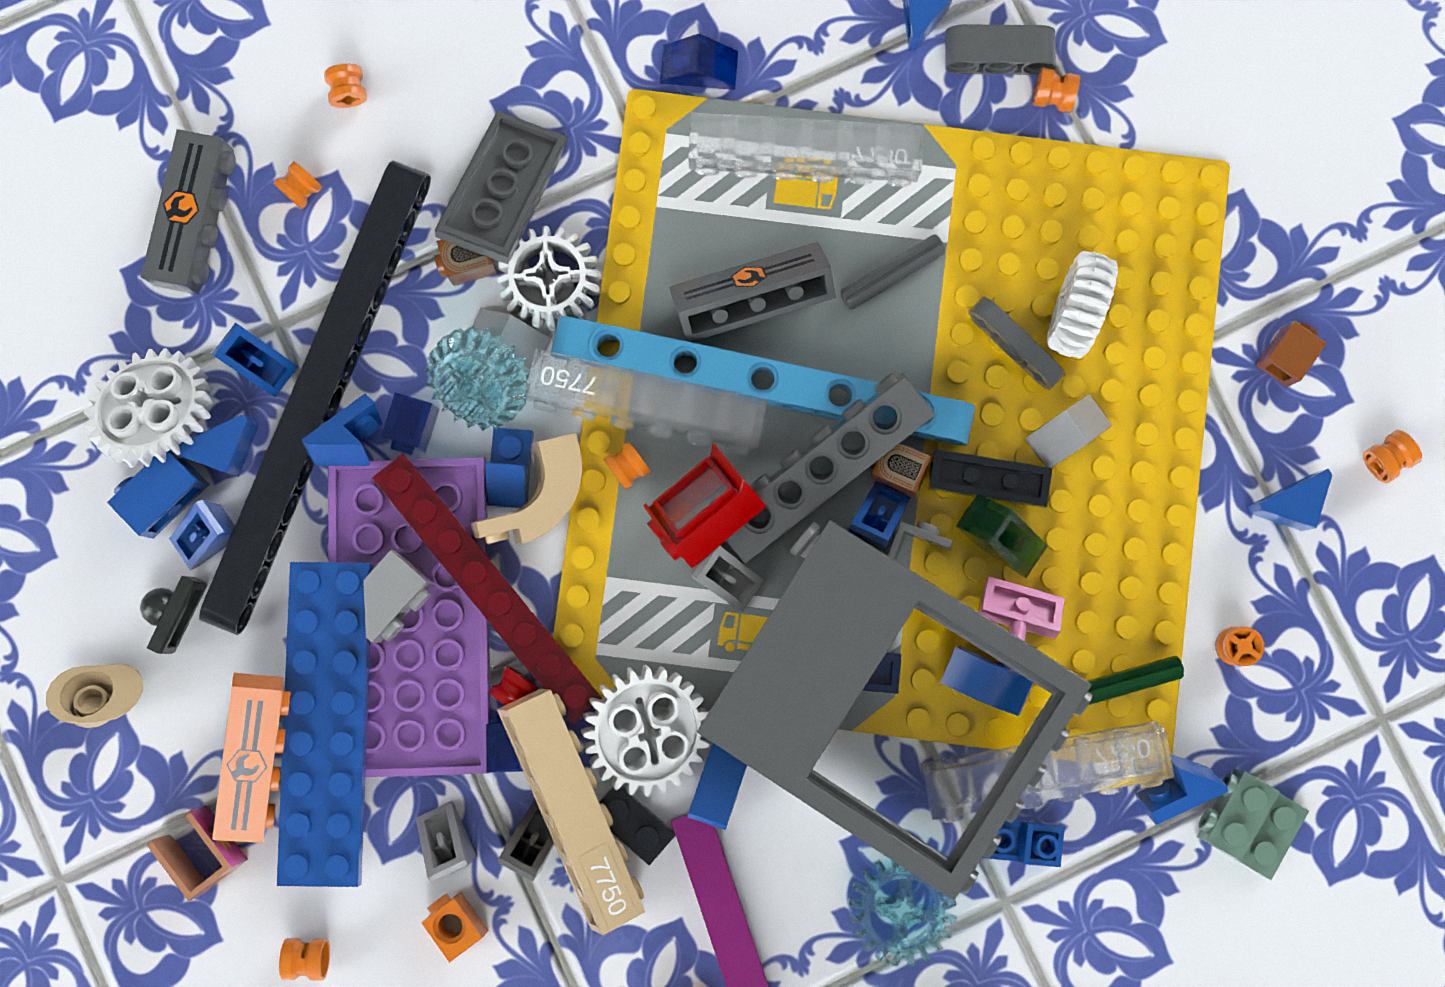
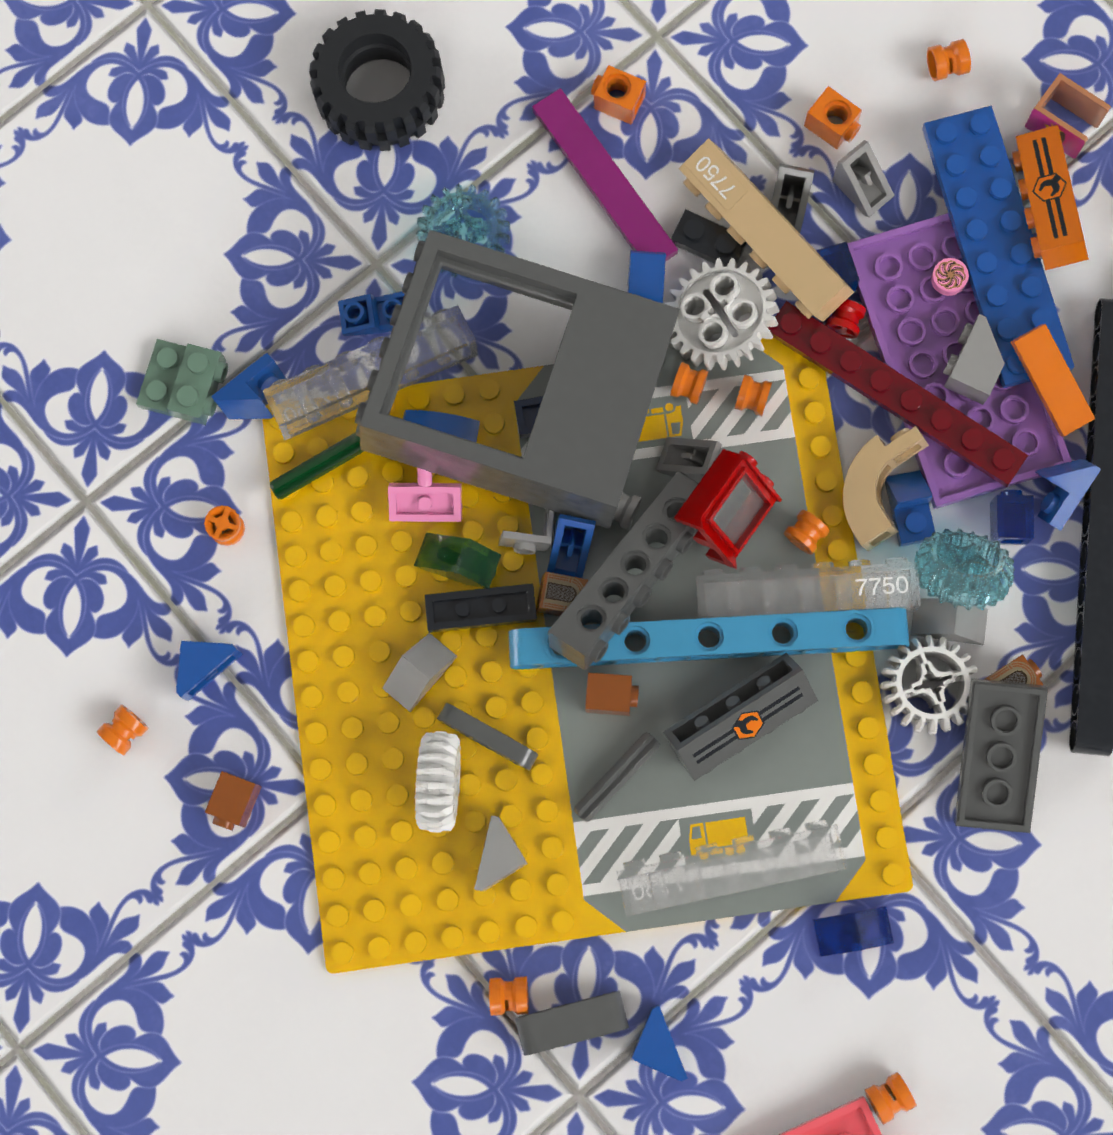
camera: 170 degrees right, 5 degrees down
(318, 551) = (1052, 380): none -> orange tile
(387, 701) = (949, 276): none -> tile
(638, 628) = (753, 395): none -> orange wheel
(703, 661) = (689, 383): none -> orange wheel
(877, 352) = (610, 694): none -> dark orange brick
(1032, 219) = (499, 857): none -> light grey slope

